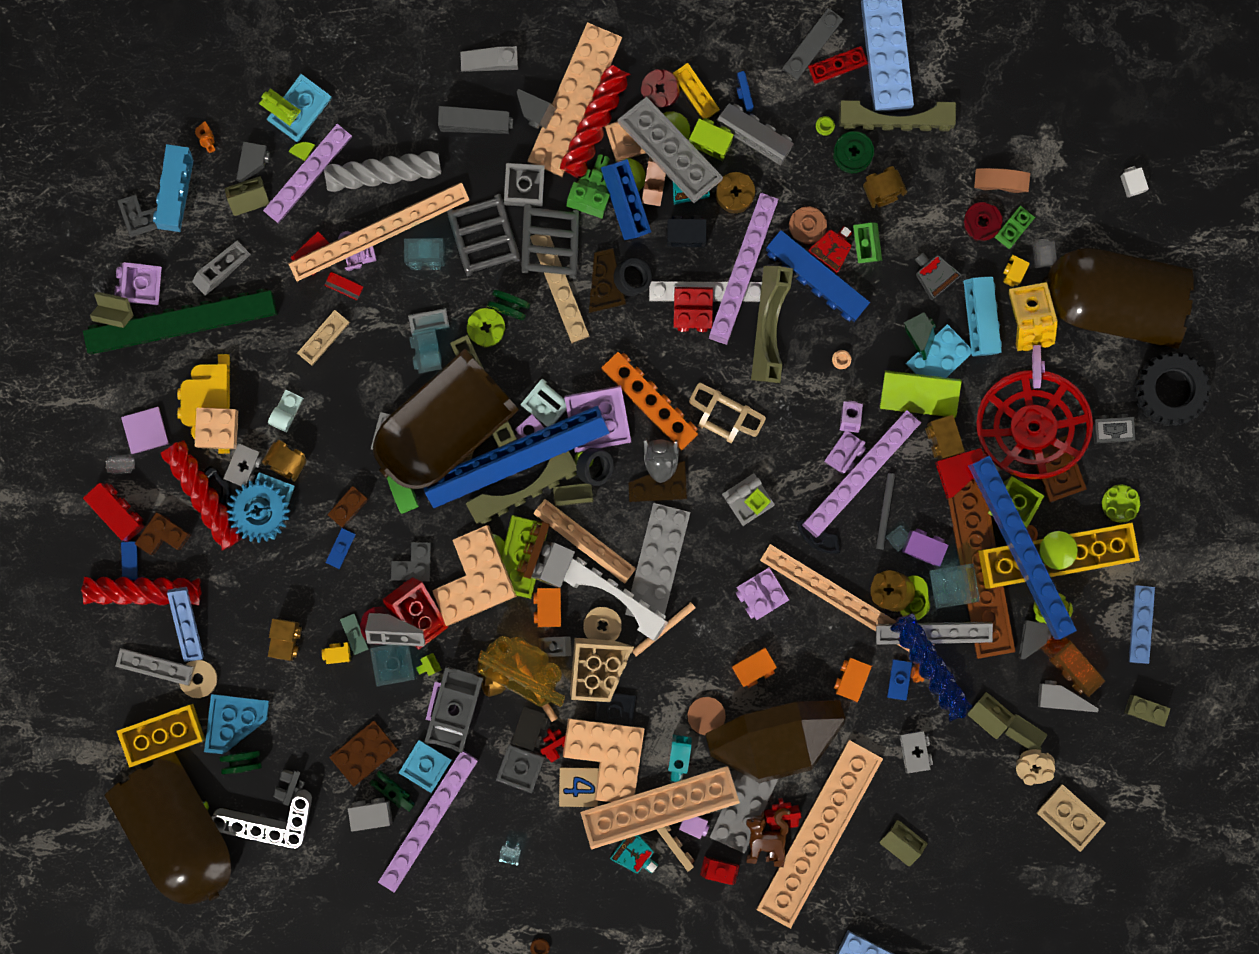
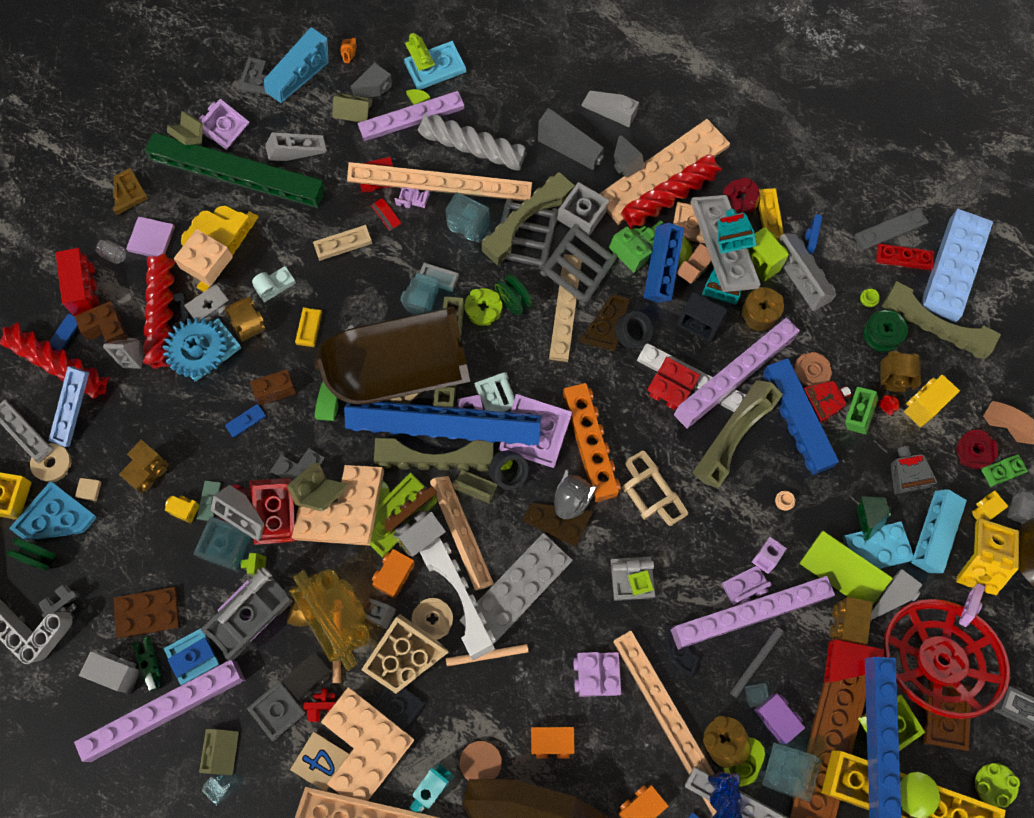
camera: 30 degrees right, 15 degrees down
(94, 398) = (127, 191): none -> pearl gold wing
(201, 547) = (126, 352): none -> light grey slope
(246, 682) = (88, 489): none -> tan tile
(342, 433) = (308, 327): none -> yellow tile
(426, 767) = (191, 657): none -> blue plate
(444, 576) = (314, 490): none -> olive bracket
(447, 686) = (251, 588): none -> light grey pin
(489, 183) = (552, 194): none -> olive arch
(494, 825) = (219, 752): none -> olive panel
(674, 141) = (735, 232): none -> teal torso
(889, 221) = (889, 404): none -> red plate
(923, 201) = (930, 400): none -> yellow brick
(972, 389) = (898, 592): none -> light grey slope

